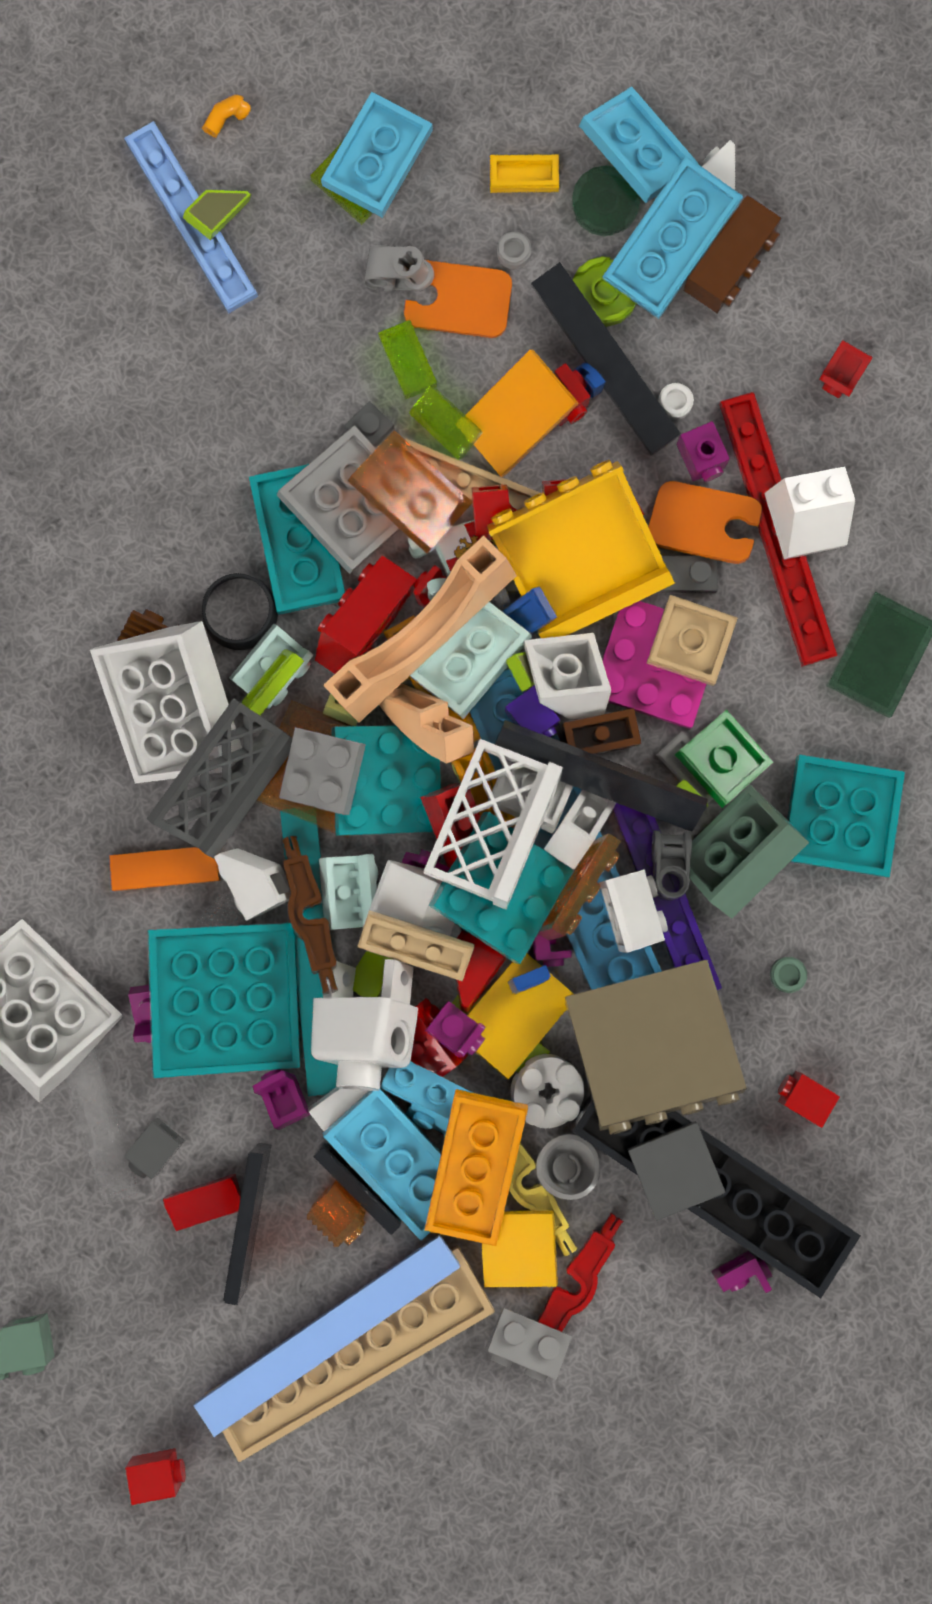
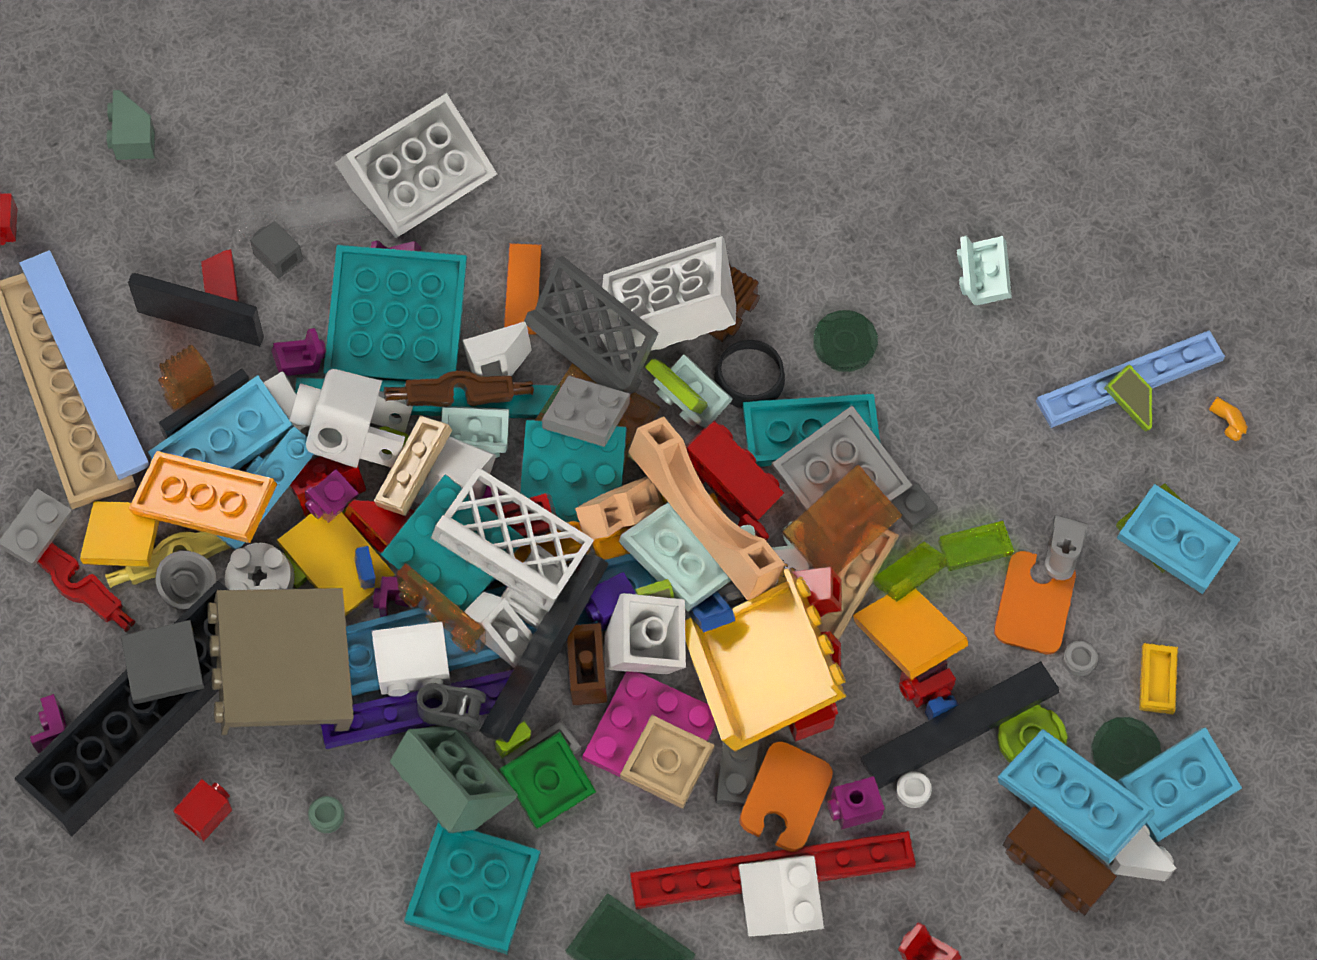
camera: 95 degrees right, 20 degrees down
(81, 373) = (984, 270): none -> light aqua bracket
(184, 515) = (845, 340): none -> clear green tile

